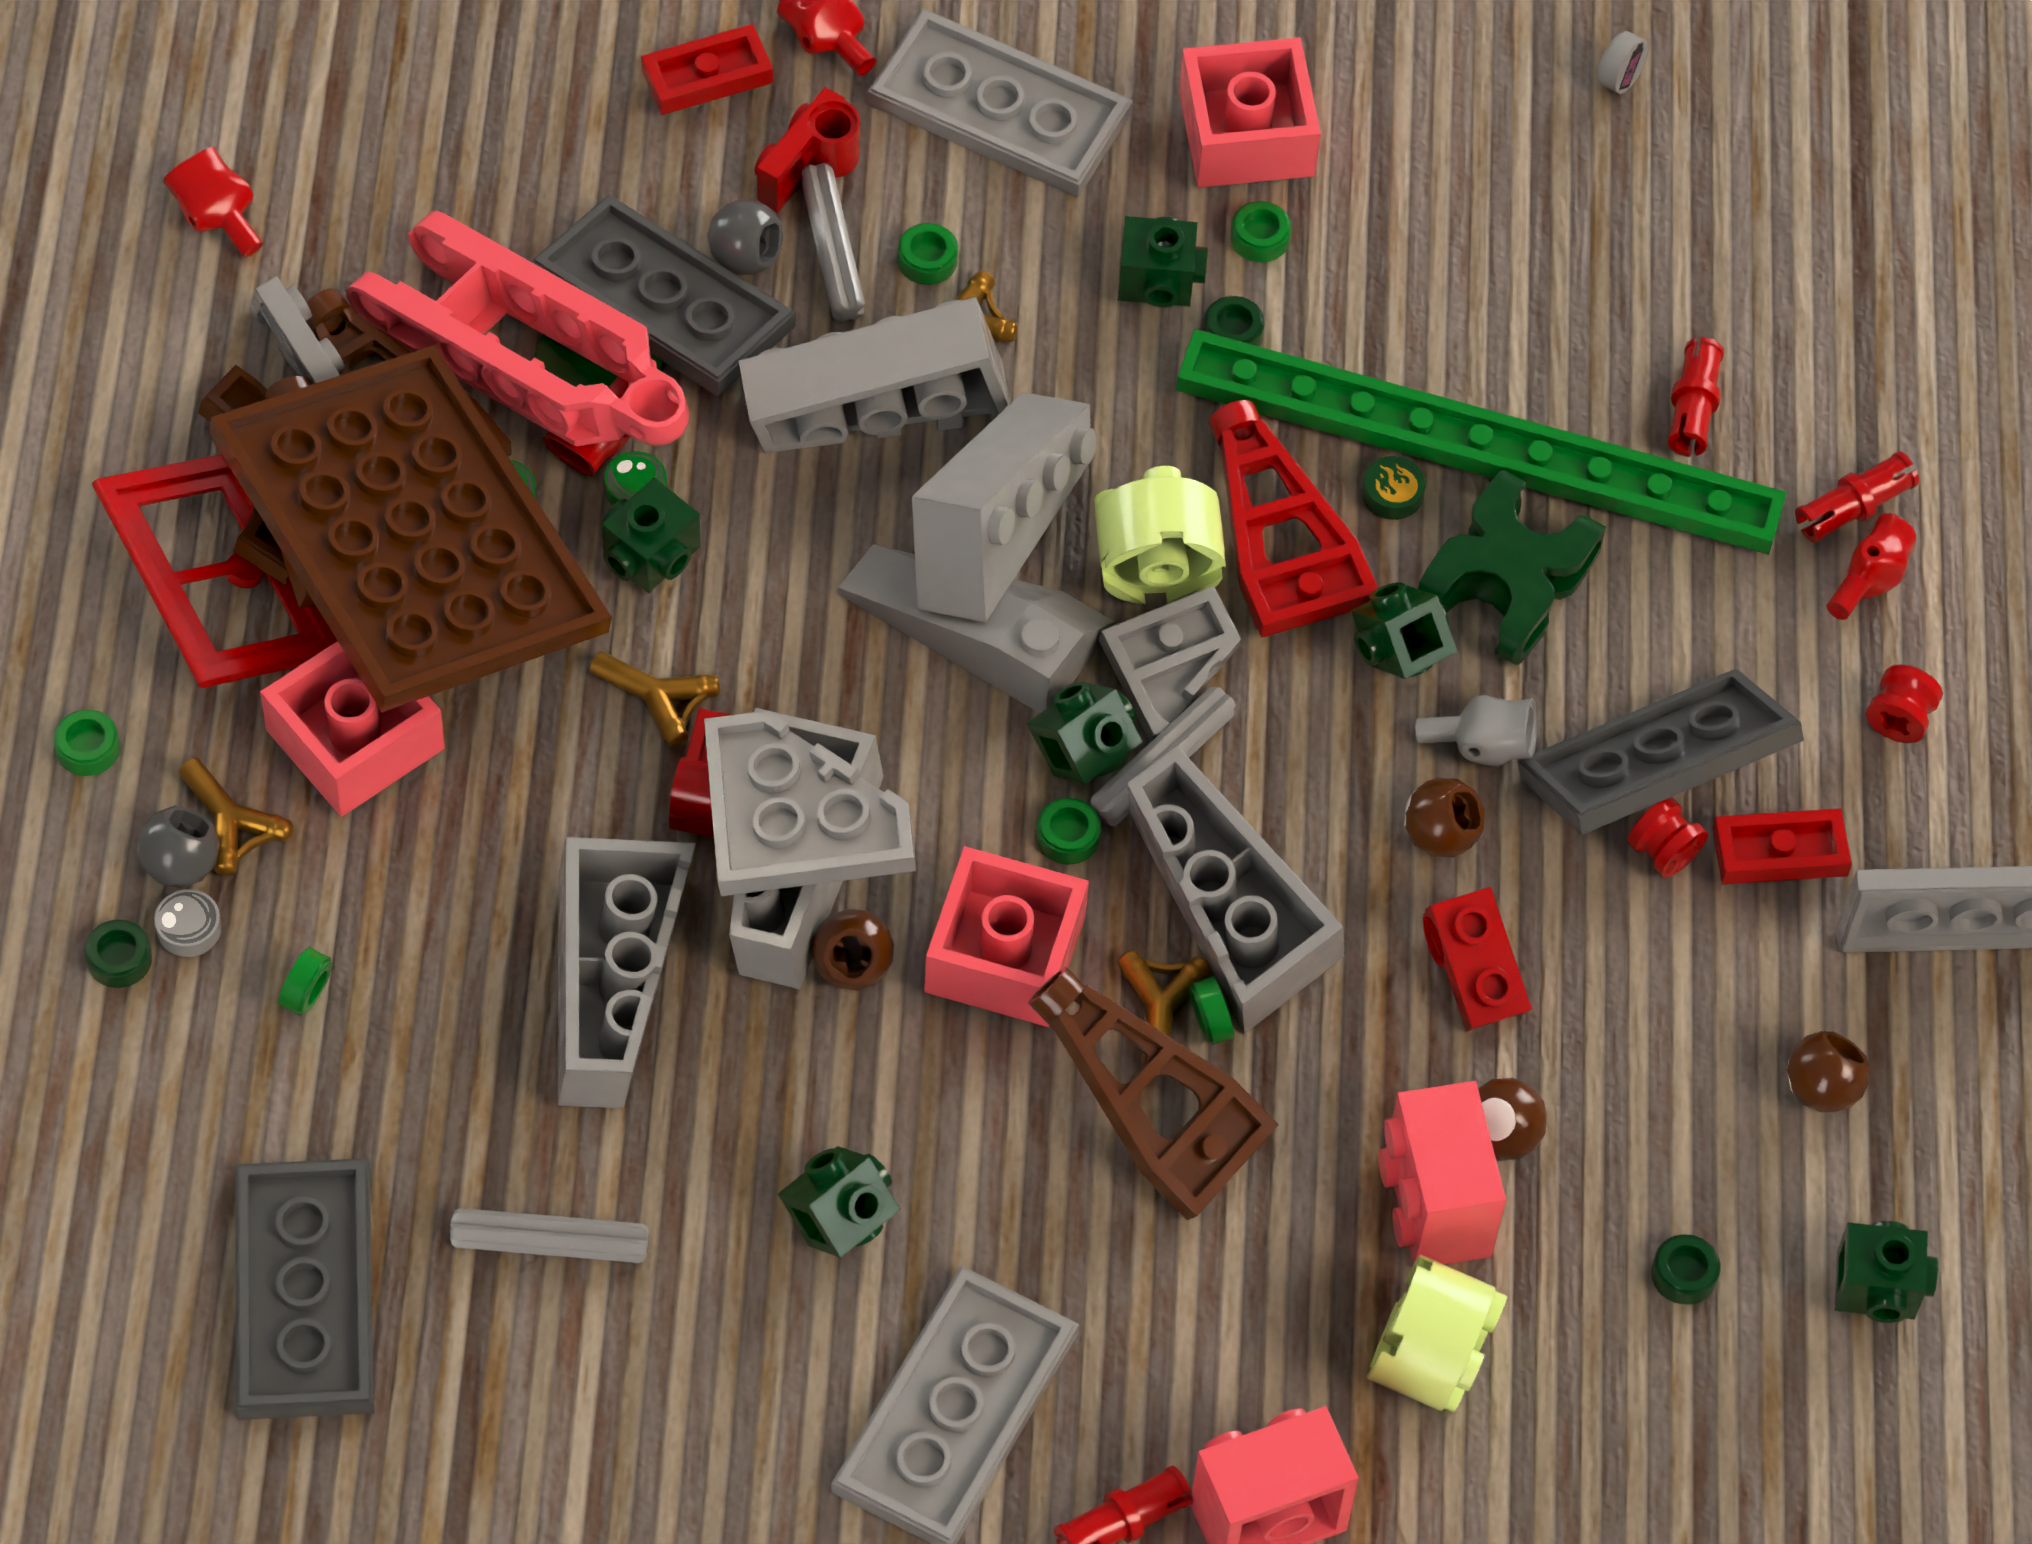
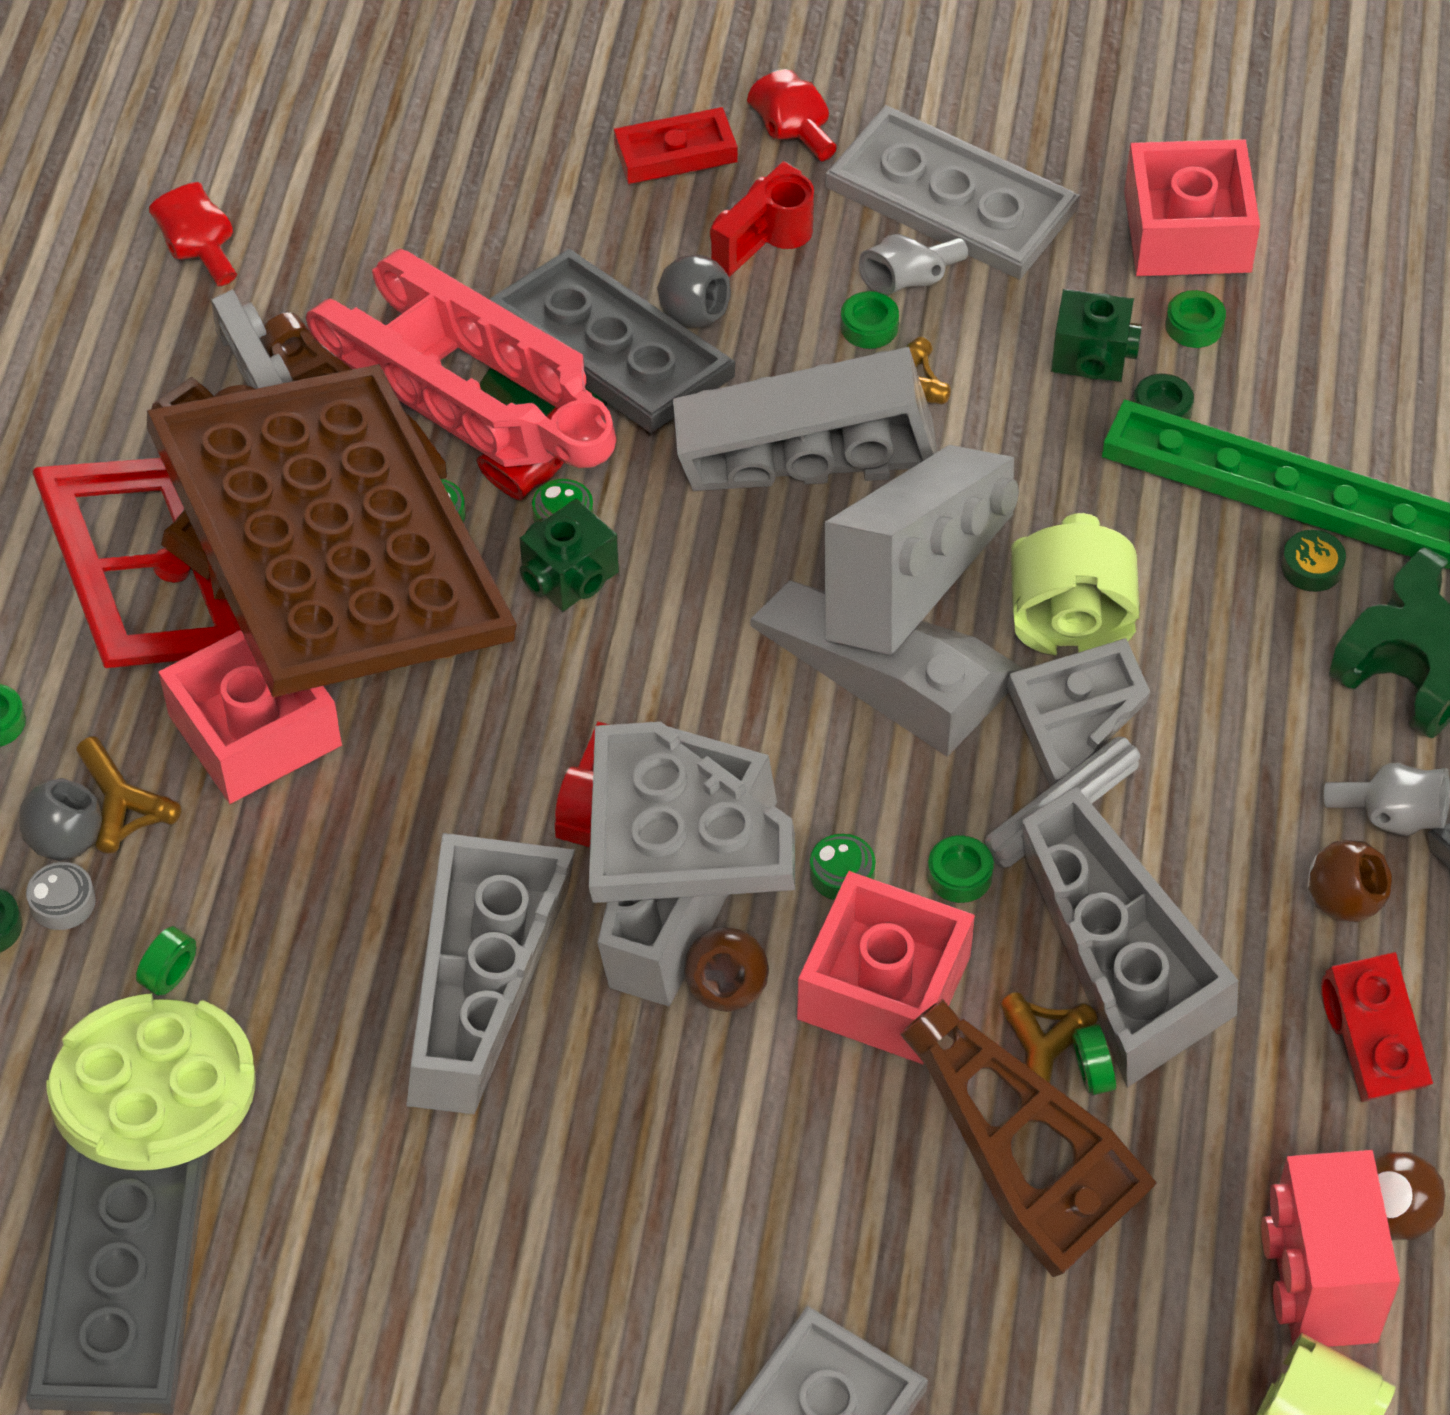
camera: 10 degrees right, 5 degrees down
(308, 1101) = (151, 1082): none -> yellowish green tile
(549, 1235) = (379, 1240): light grey axle -> none
(659, 693) = (561, 706): pearl gold piece -> none
(832, 242) = (778, 303): light grey axle -> none
(840, 1200) = (686, 1226): dark green brick -> none
(947, 833) = (835, 857): none -> green tile
(960, 191) = (906, 263): none -> light grey piece
(1085, 731) = (985, 770): dark green brick -> none
(1300, 588) = (1212, 648): red plate -> none
(1402, 630) = (1316, 693): dark green brick -> none

